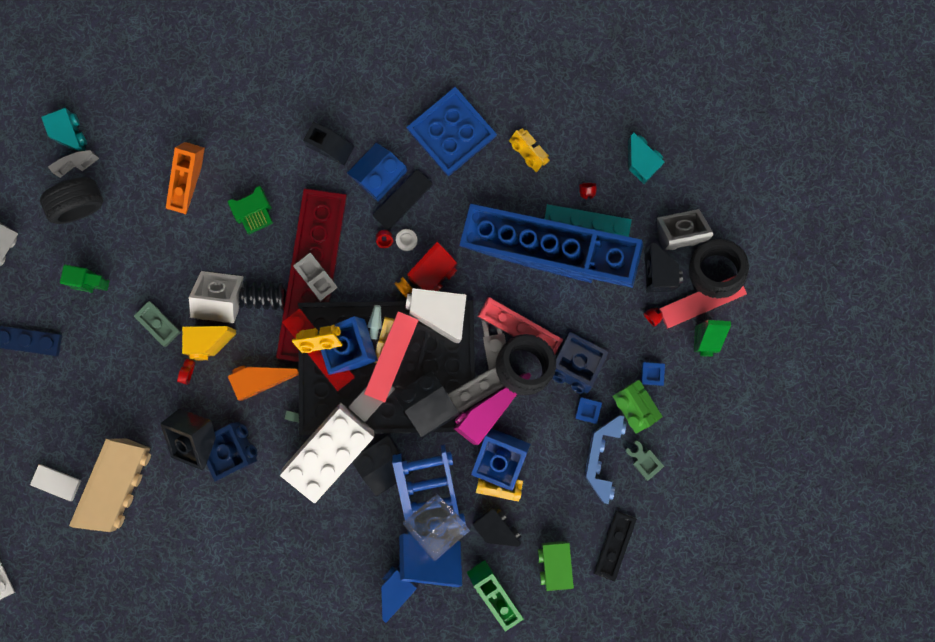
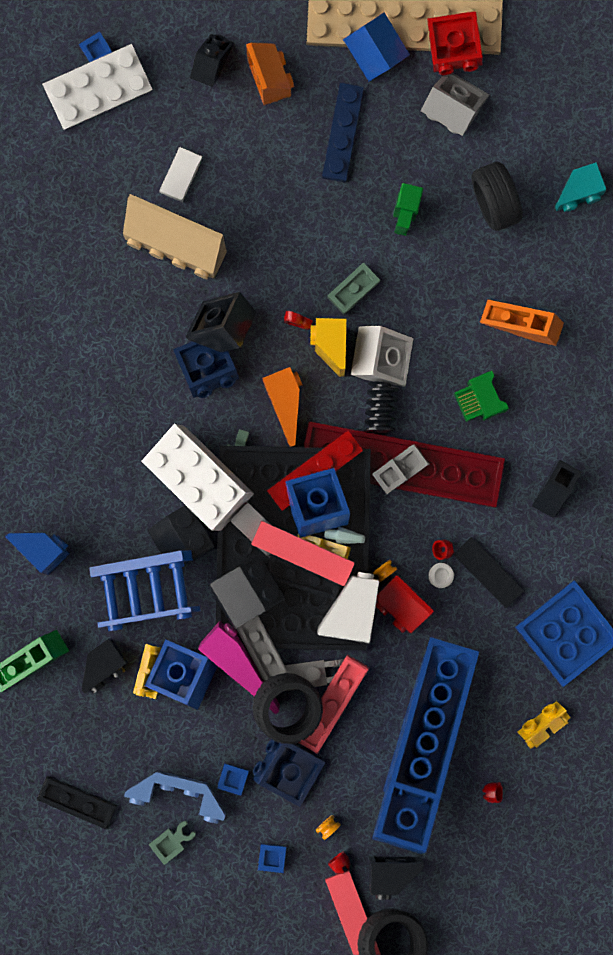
camera: 90 degrees right, 0 degrees up
(79, 159) = (545, 204): light grey slope -> none
(309, 341) = (324, 460): yellow hinge -> none
(377, 171) = (523, 544): blue slope -> none
(420, 568) = (71, 589): blue tile -> none
(436, 527) = (107, 597): clear slope -> none
(556, 566) = (57, 733): bright green brick -> none
(589, 220) = (454, 791): teal plate -> none
(624, 327) = (328, 827): none -> light orange bush
(637, 406) = (234, 837): bright green brick -> none
(642, 160) = (527, 860): teal slope -> none
(683, 230) = (440, 904): light grey slope -> none
(710, 337) = (310, 928): green slope -> none

